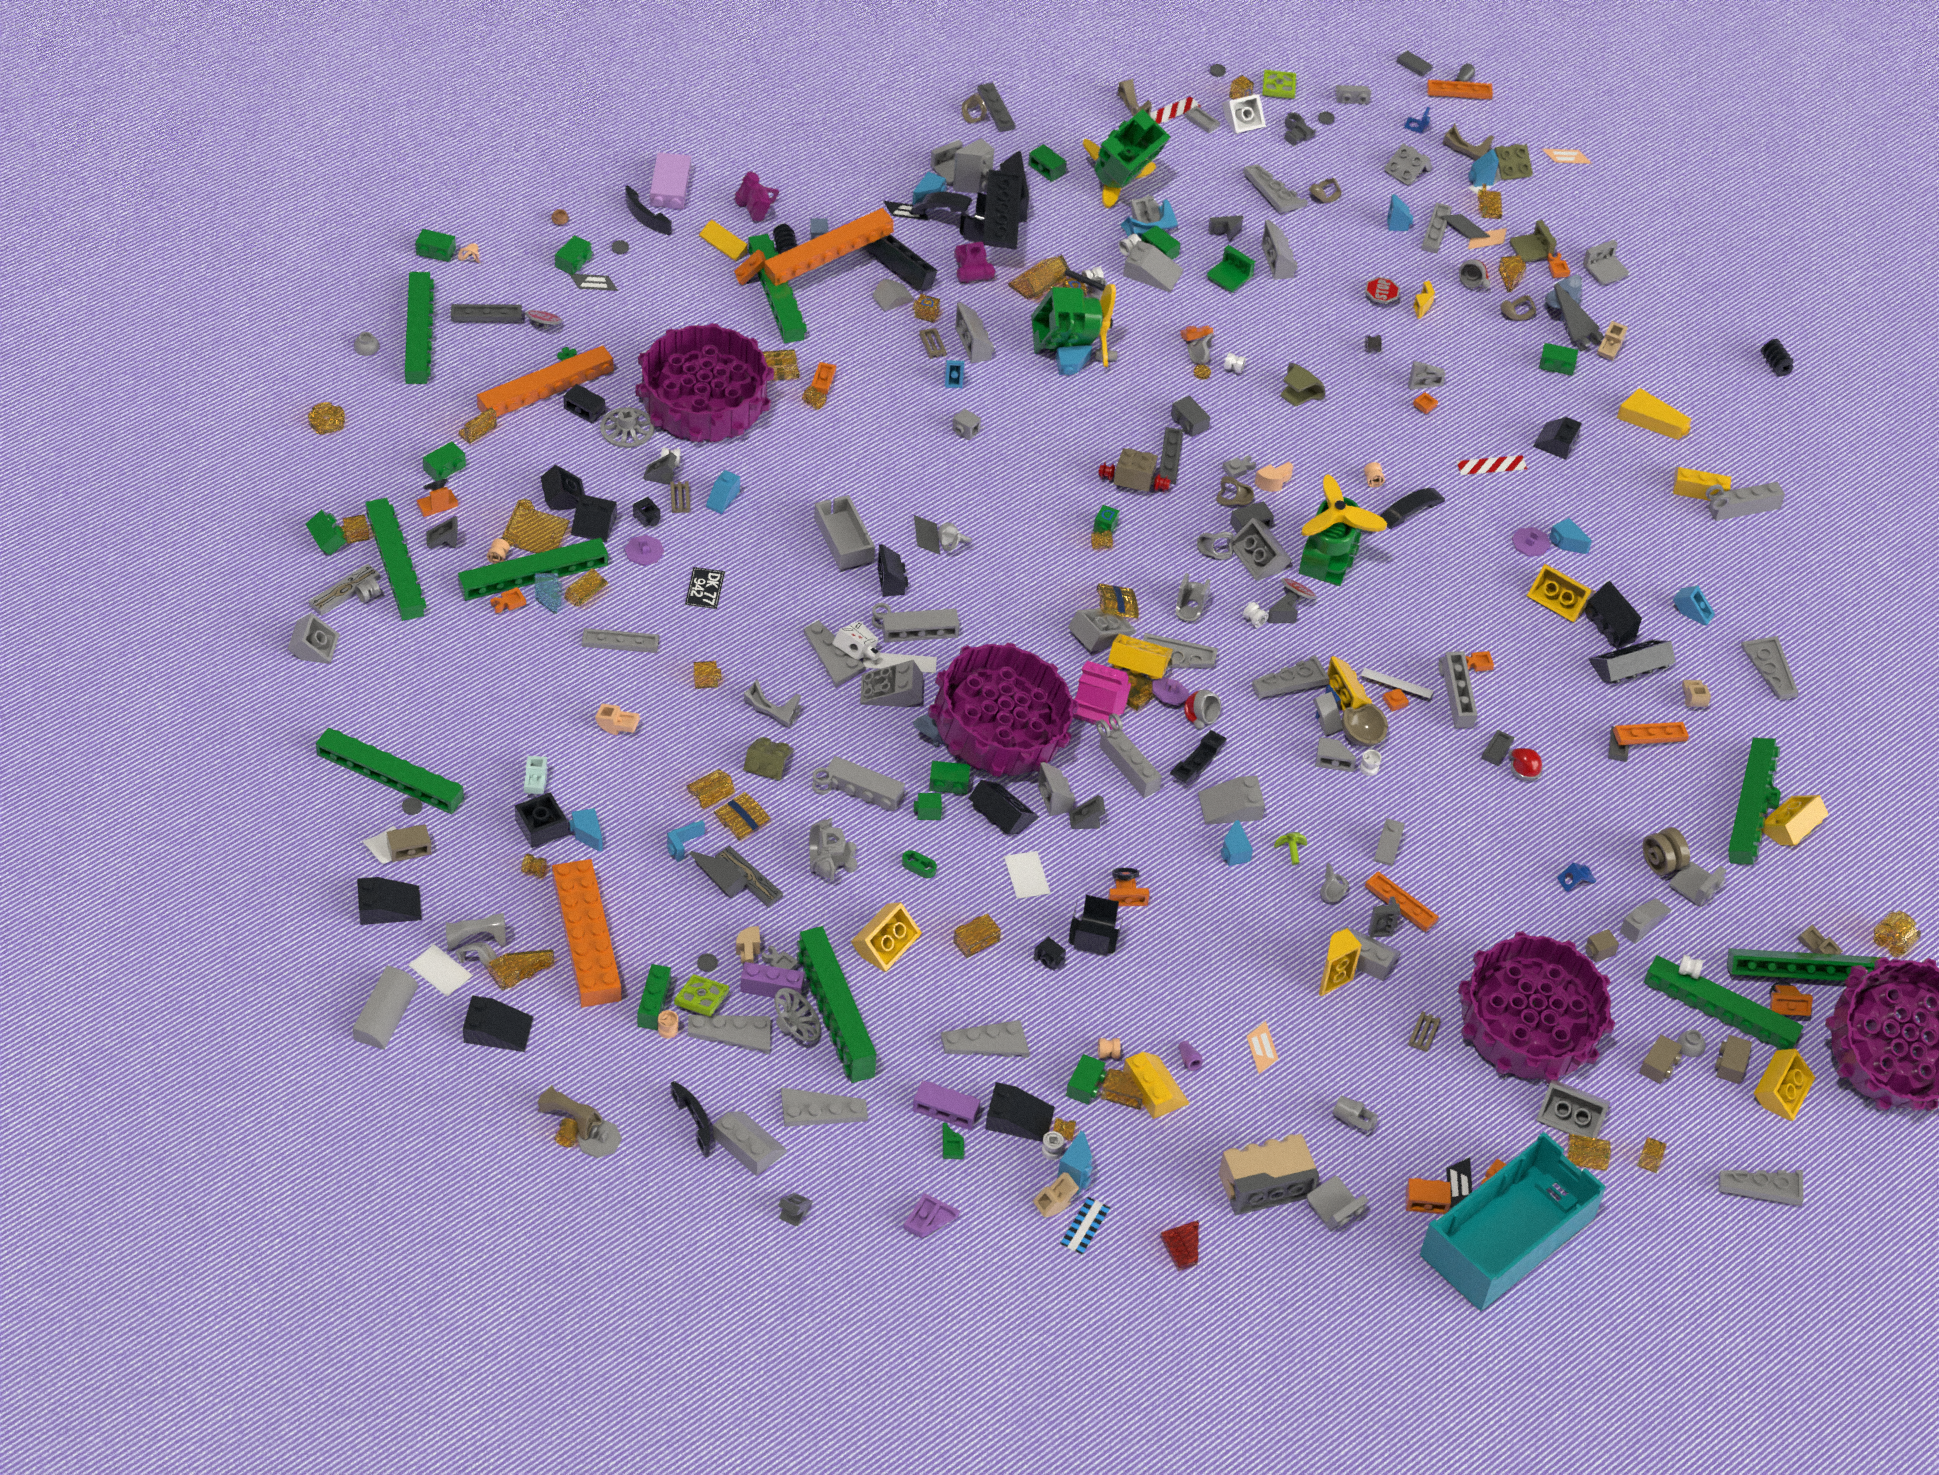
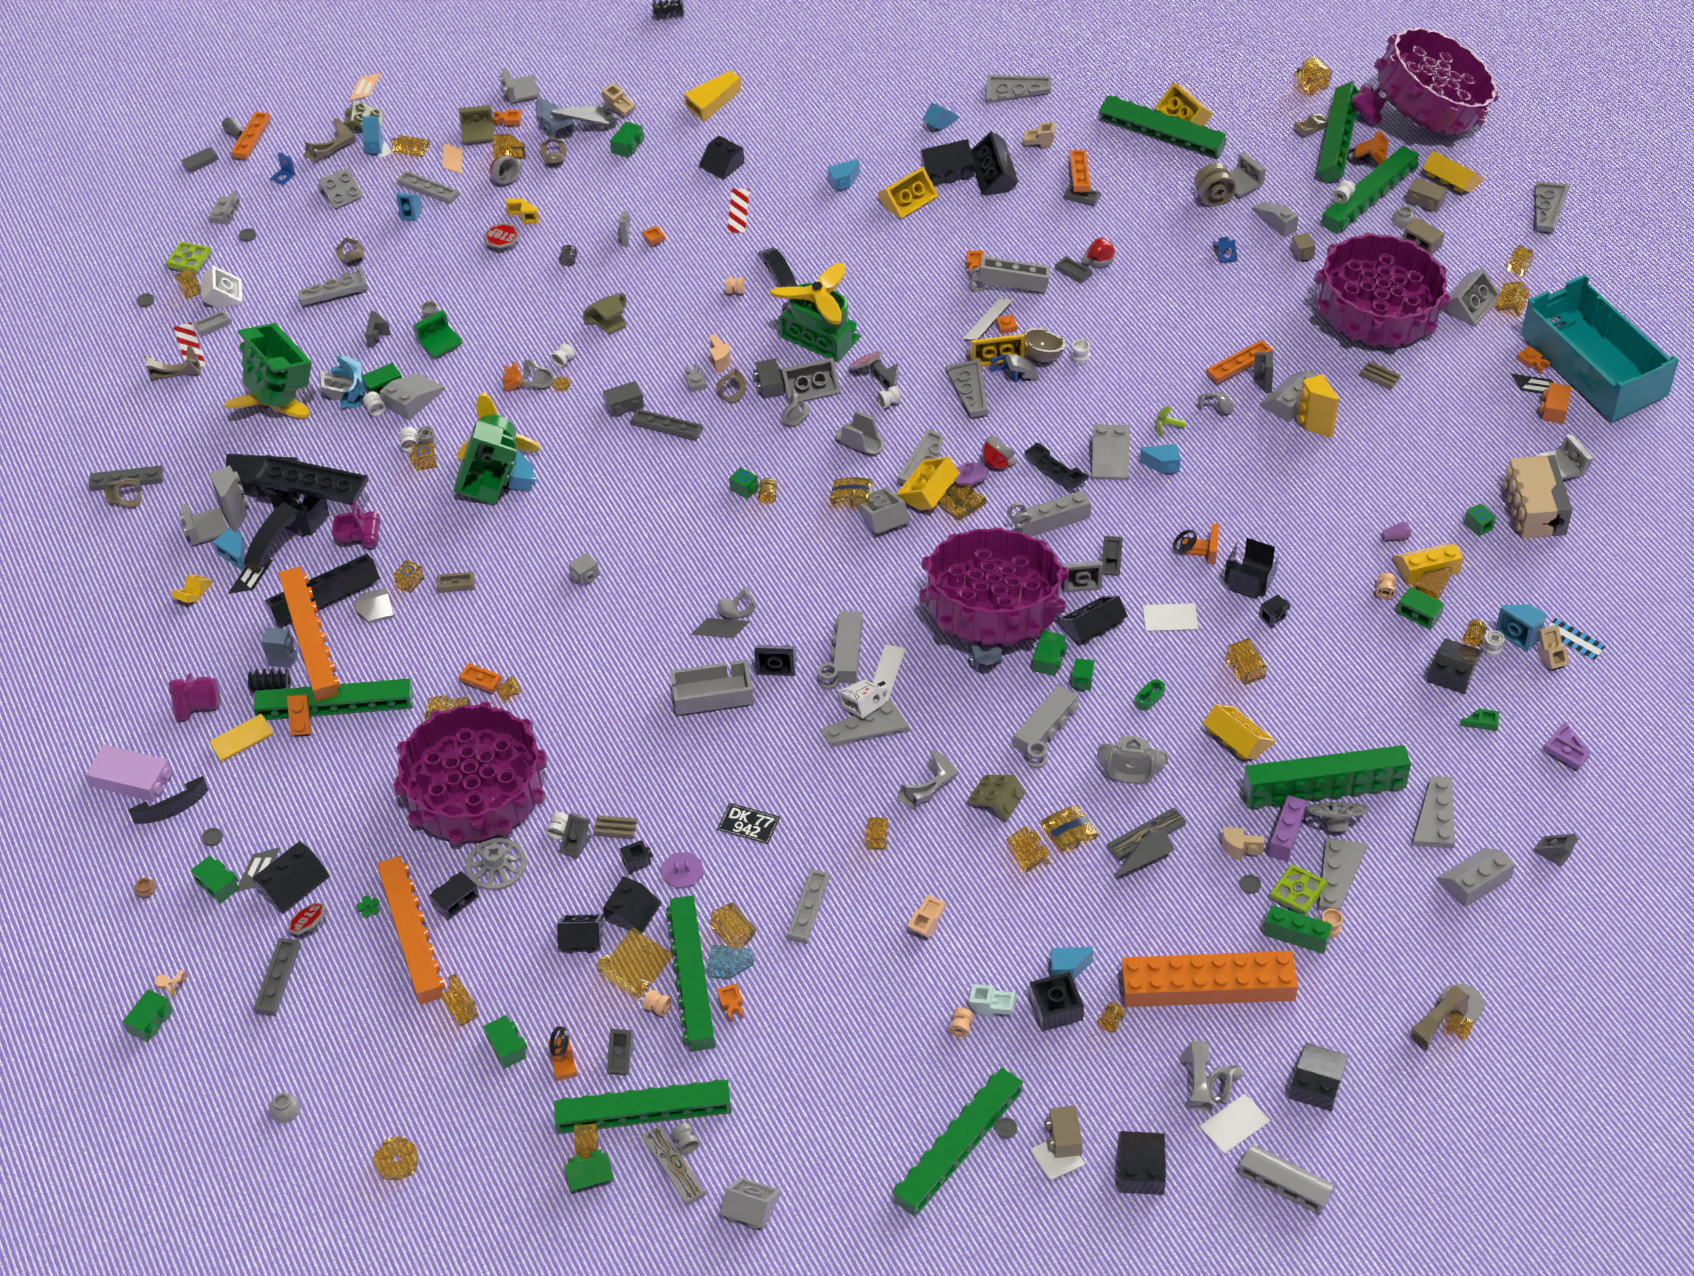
camera: 70 degrees left, 0 degrees up
(418, 328) = (279, 1047): green brick -> none
(511, 758) = (961, 1020): none -> light nougat wheel
(517, 966) = (1246, 1047): clear yellow slope -> none
(584, 299) = (290, 877): none -> black slope
(678, 836) = (1098, 889): dark azure bracket -> none
(683, 1099) = (1472, 909): black slope -> none
(723, 492) = (623, 784): dark azure slope -> none
(780, 960) = (1261, 819): light grey plate -> none
(884, 177) = (193, 589): none -> yellow slope
(892, 686) = (922, 681): light grey slope -> none
(946, 1105) = (1443, 714): medium lavender brick -> none
(953, 373) = (510, 566): dark azure slope -> none
(972, 334) = (462, 545): light grey slope -> none
(998, 1038) = (1366, 673): light grey wing -> none
(1040, 277) = (394, 480): clear yellow slope -> none
(1047, 163) = (233, 443): green brick -> none
(1085, 280) = (424, 438): black bar -> none
(1101, 693) = (975, 510): dark pink slope -> none
(1135, 471) = (688, 448): dark tan brick -> none
(1182, 1244) = (1602, 571): clear red wing -> none
(1226, 1128) = (1479, 520): none -> green brick
(1261, 259) = (429, 308): none -> light grey wheel
(1262, 1047) = (1388, 484): light nougat sticker -> none
(1277, 252) = (415, 295): light grey slope -> none
(1298, 128) = (262, 252): dark grey piece -> none
(1334, 755) = (1067, 374): light grey slope -> none
(1350, 1111) = (1471, 432): light grey piece -> none
(1389, 842) = (1173, 355): light grey slope -> none
(1465, 226) = (434, 166): dark grey sticker -> none
(1531, 541) = (837, 203): medium lavender piece -> none
(1695, 483) = (800, 83): yellow slope -> none
(1744, 500) = (830, 60): light grey hinge -> none

